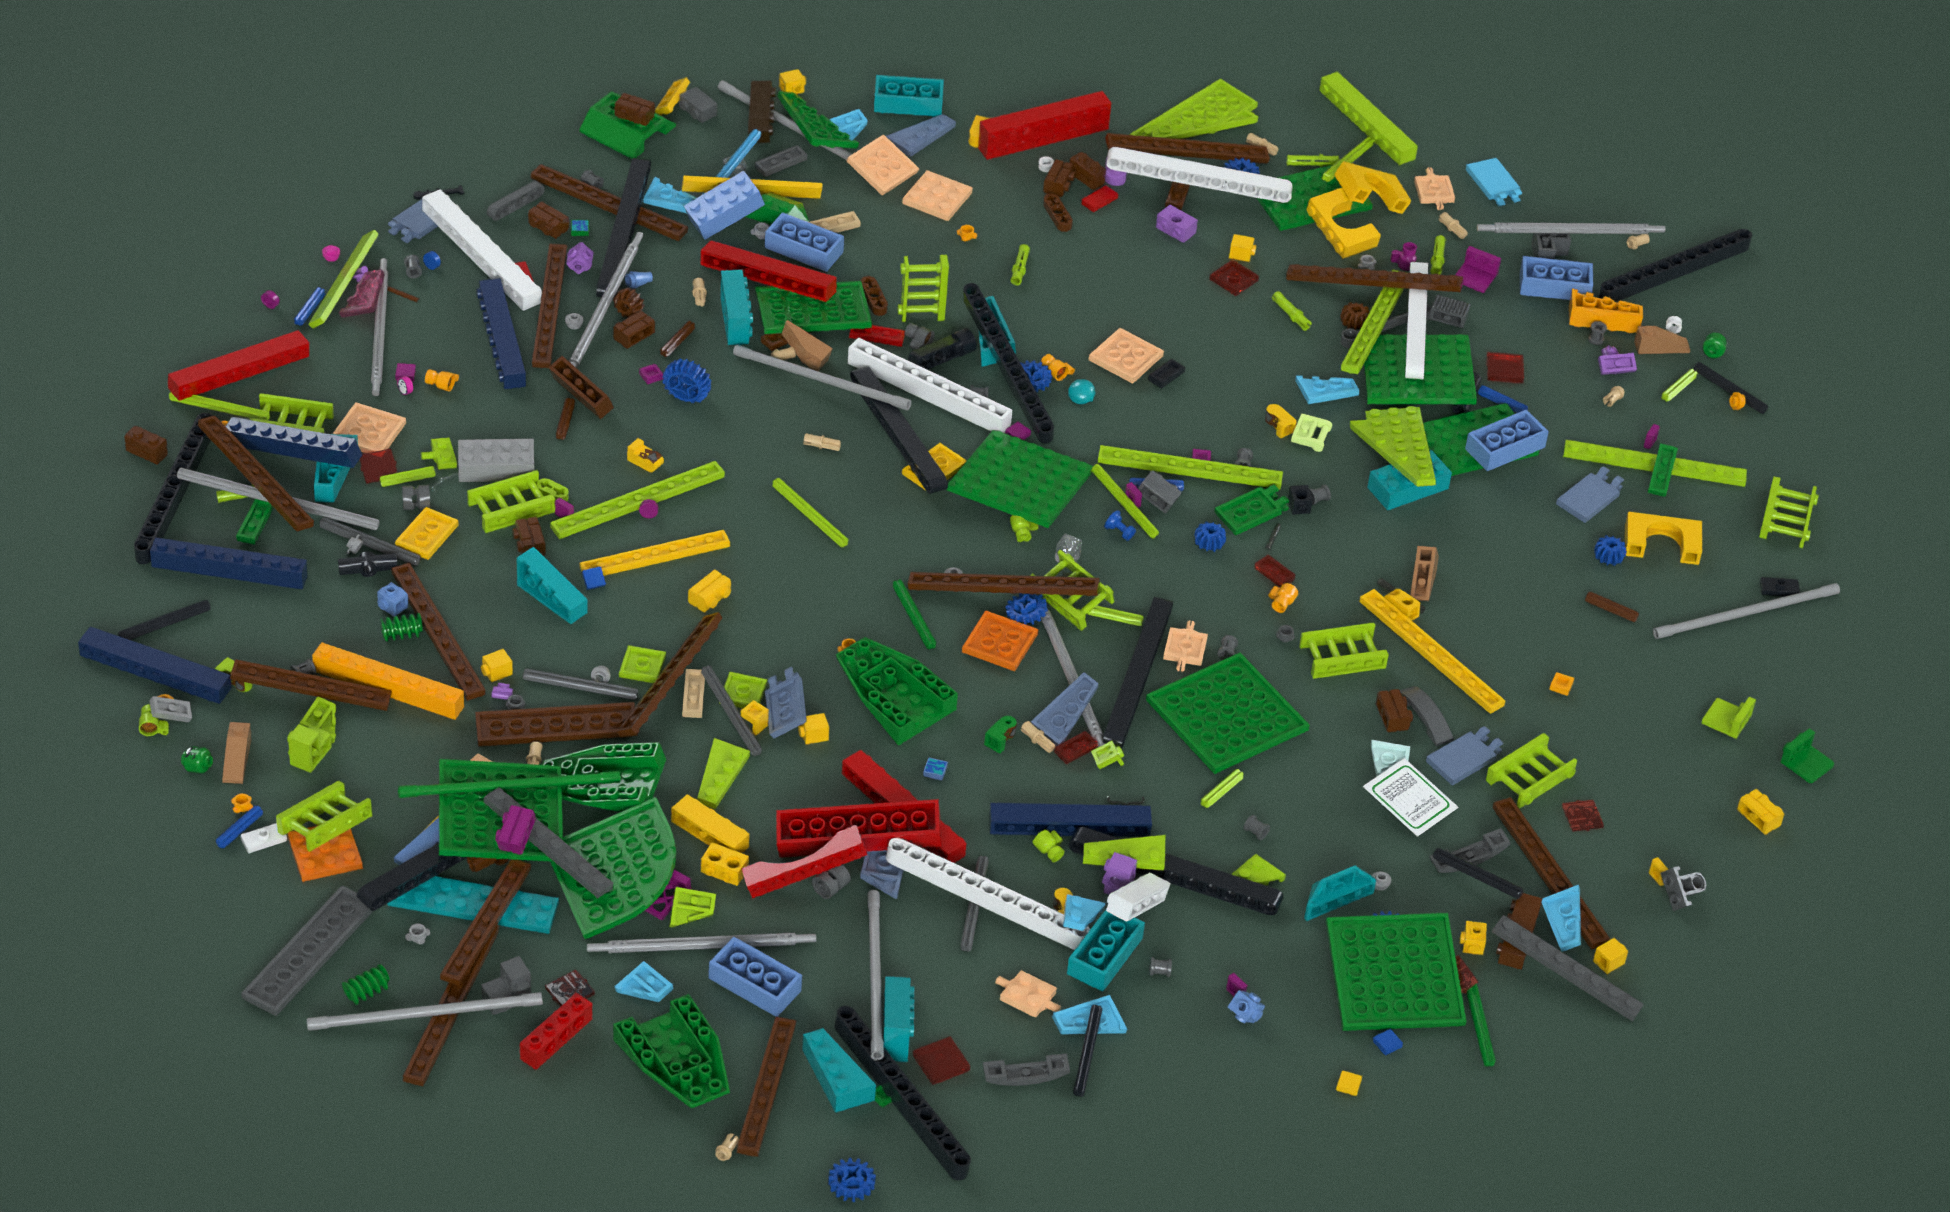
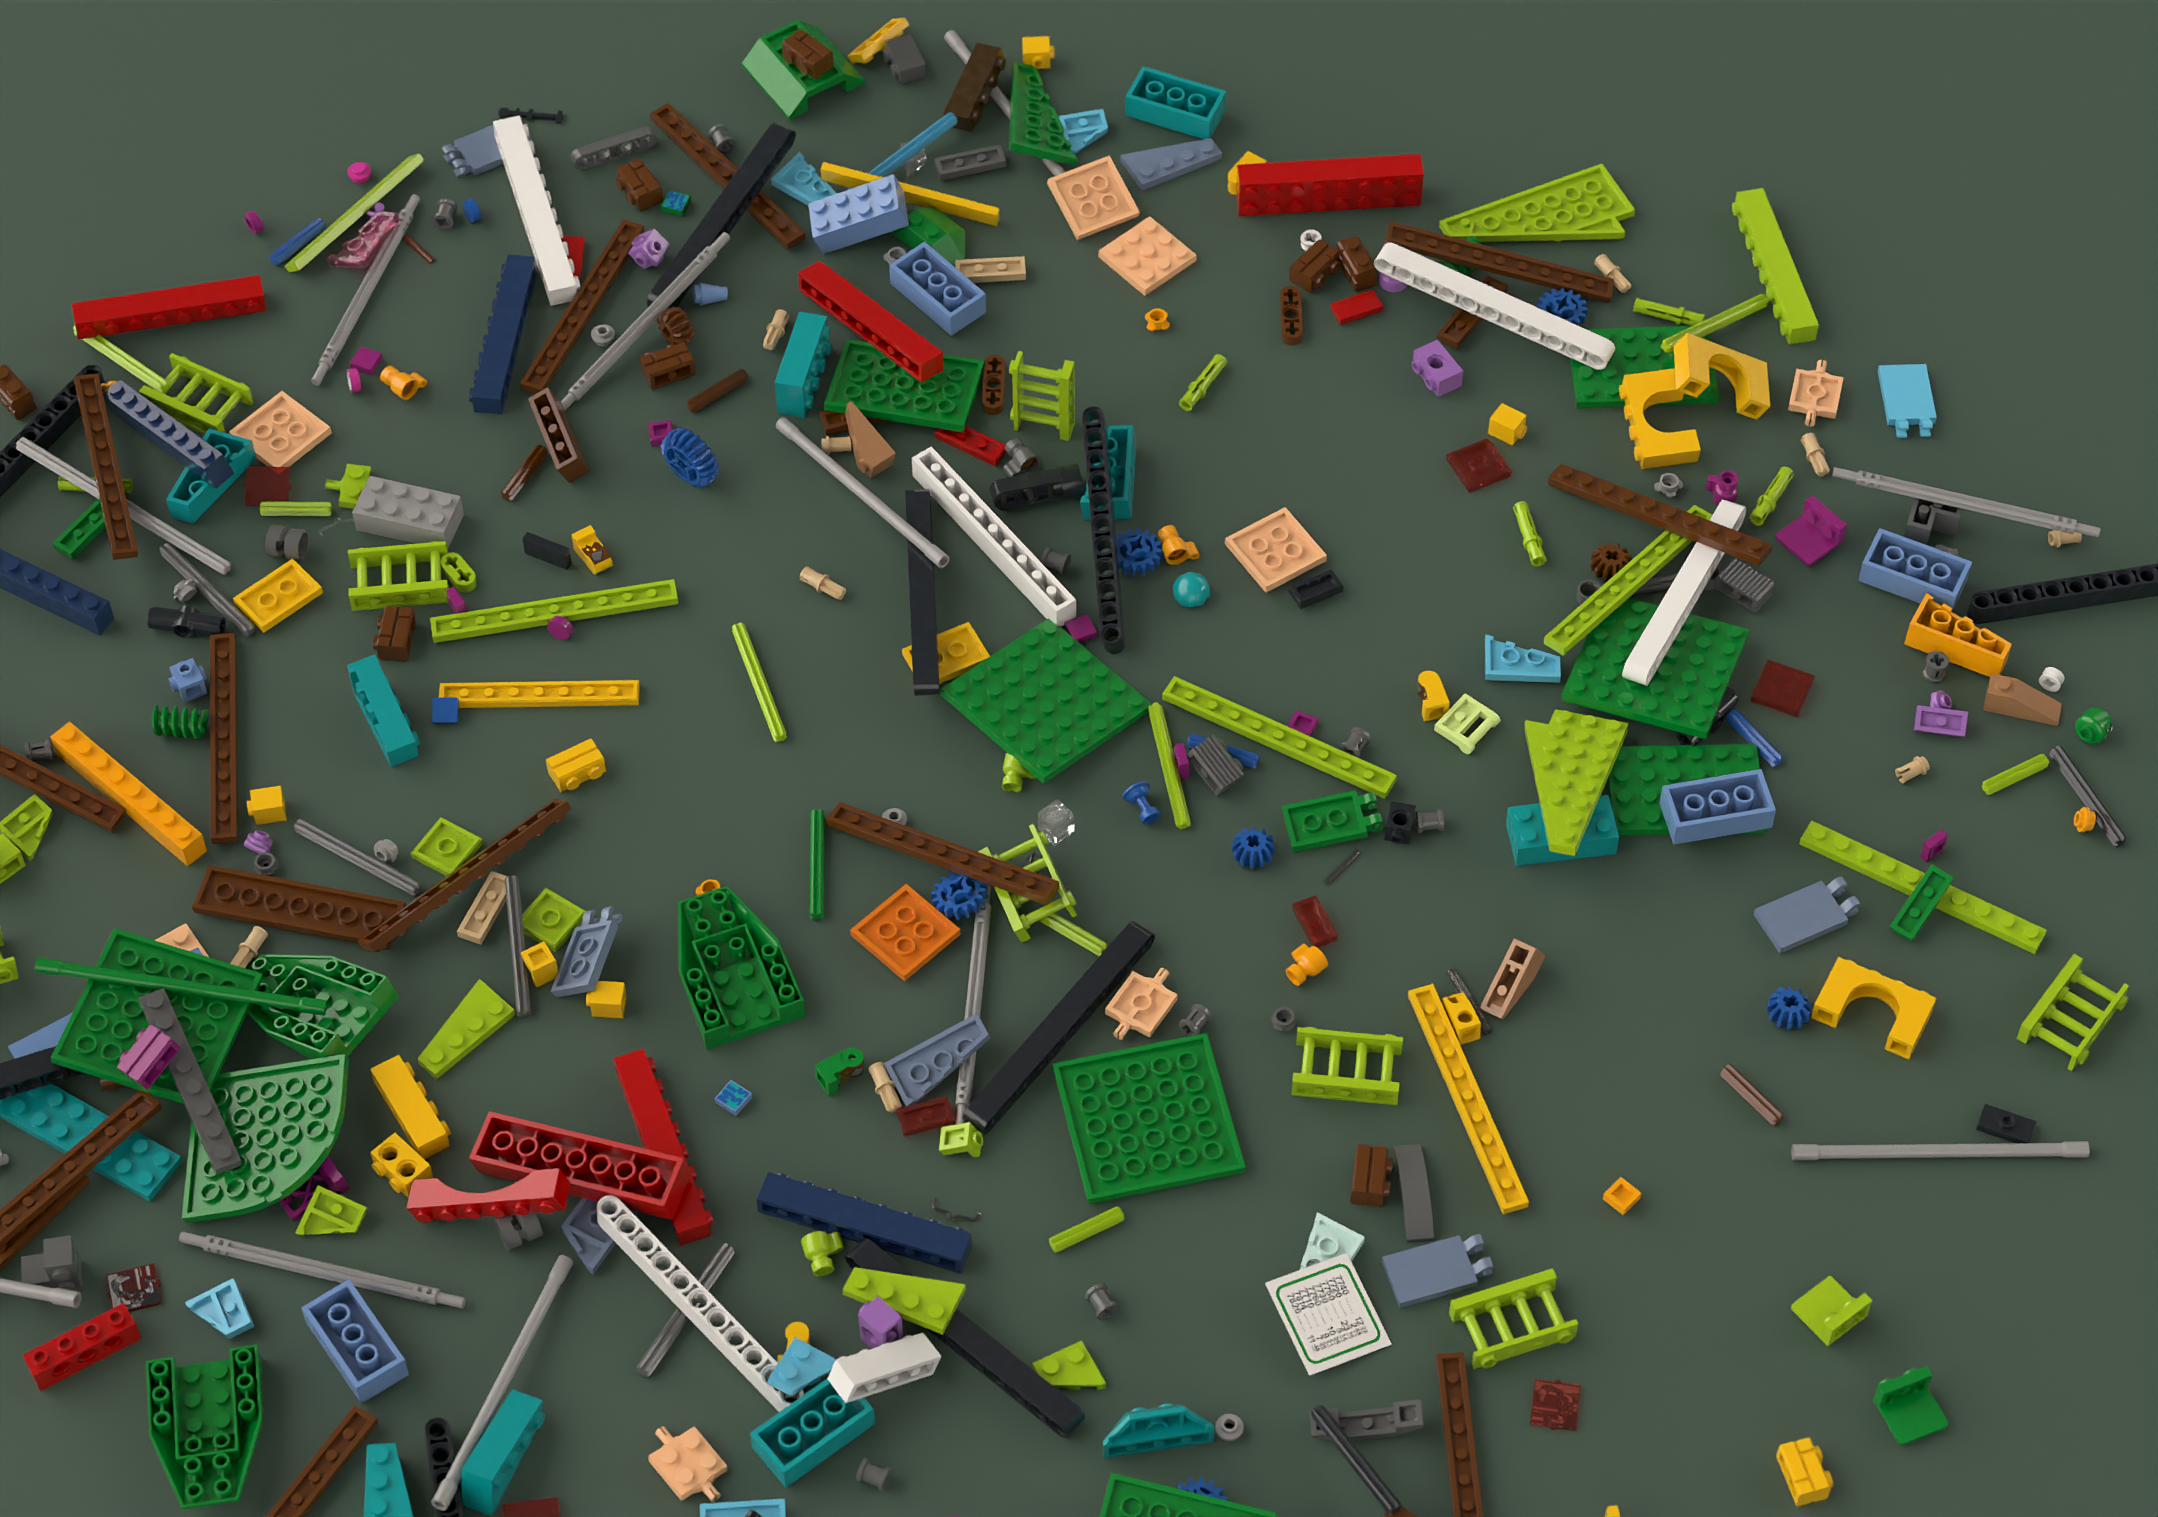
camera: 25 degrees right, 10 degrees up
(612, 462) = (547, 550): none -> black tile

